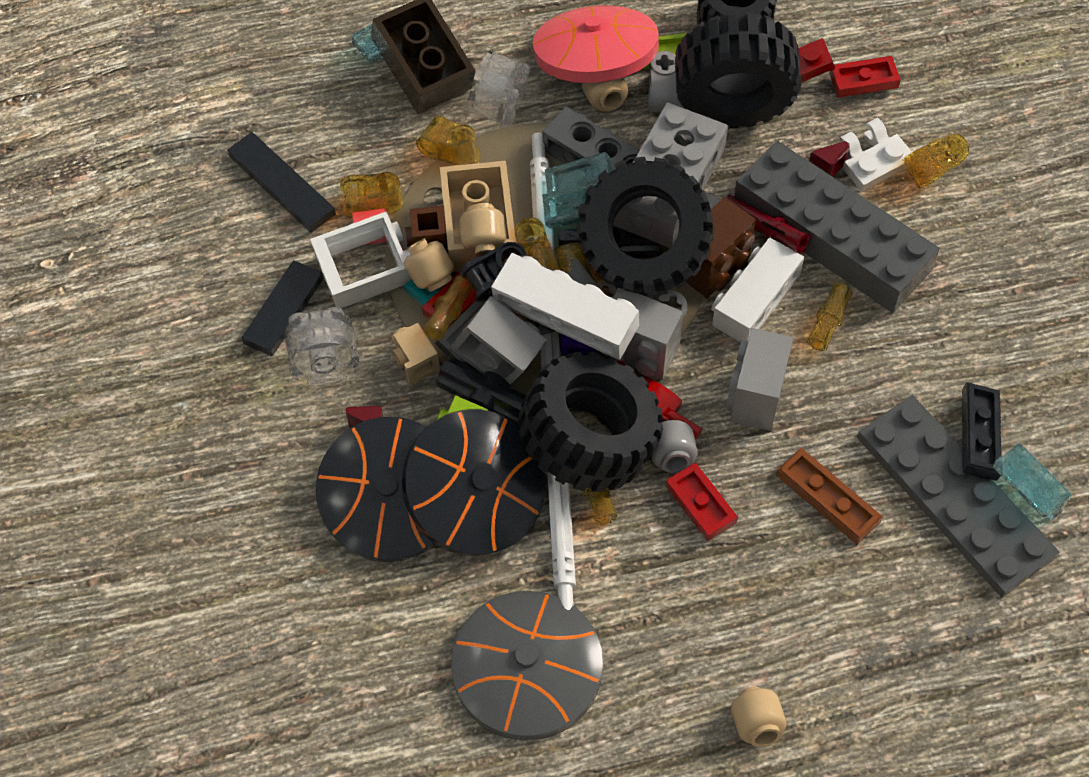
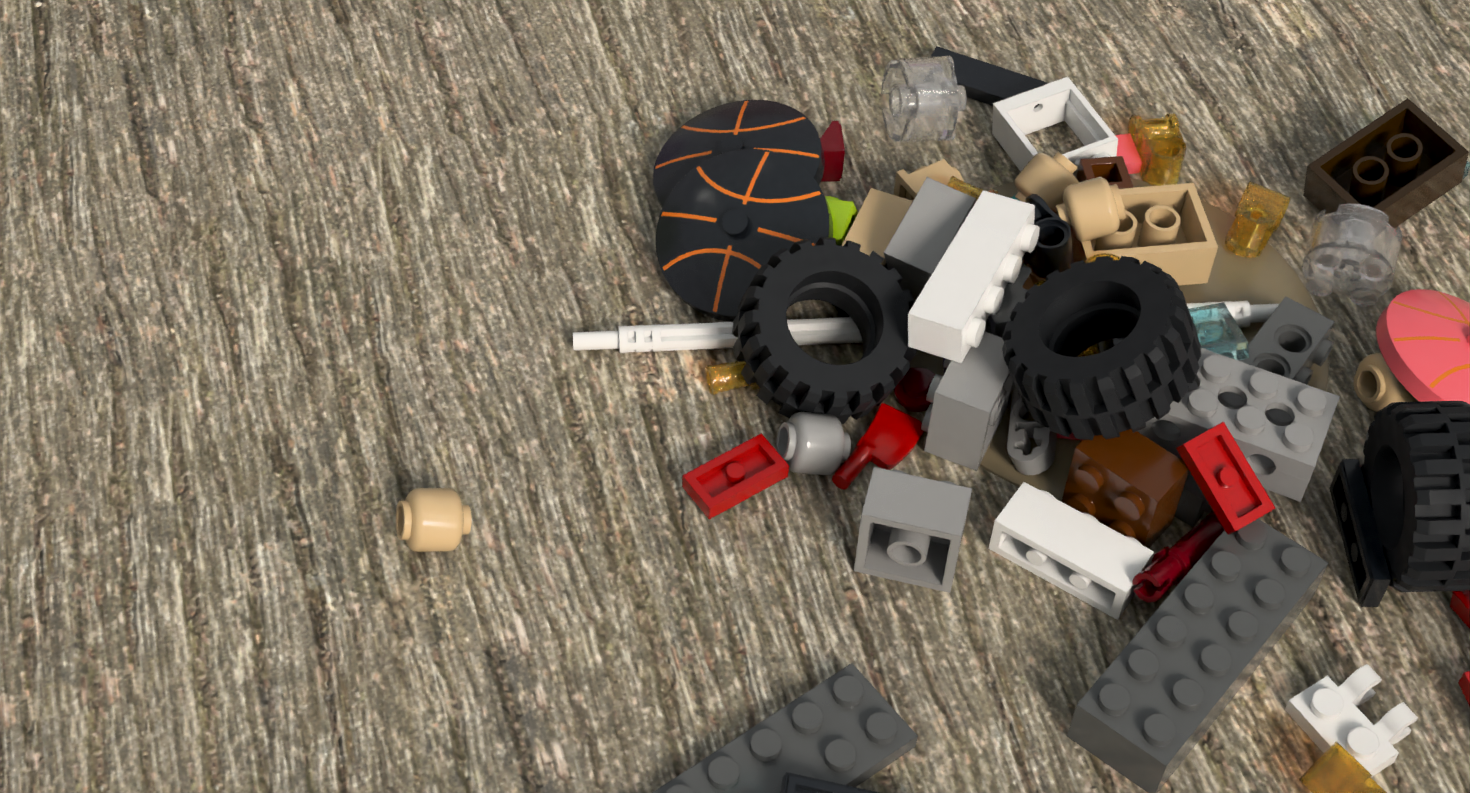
camera: 85 degrees right, 10 degrees down
(281, 182) = (1166, 72): black tile -> none
(473, 384) = (877, 221): none -> tan tile
(526, 665) = (519, 308): dark grey dish -> none
(734, 178) = (1225, 478): none -> red plate
(750, 125) = (1359, 533): none -> black tile
(829, 316) = (1041, 639): clear yellow pin -> none
(829, 496) = (751, 628): dark orange tile -> none
(830, 158) = (1323, 653): dark red slope -> none

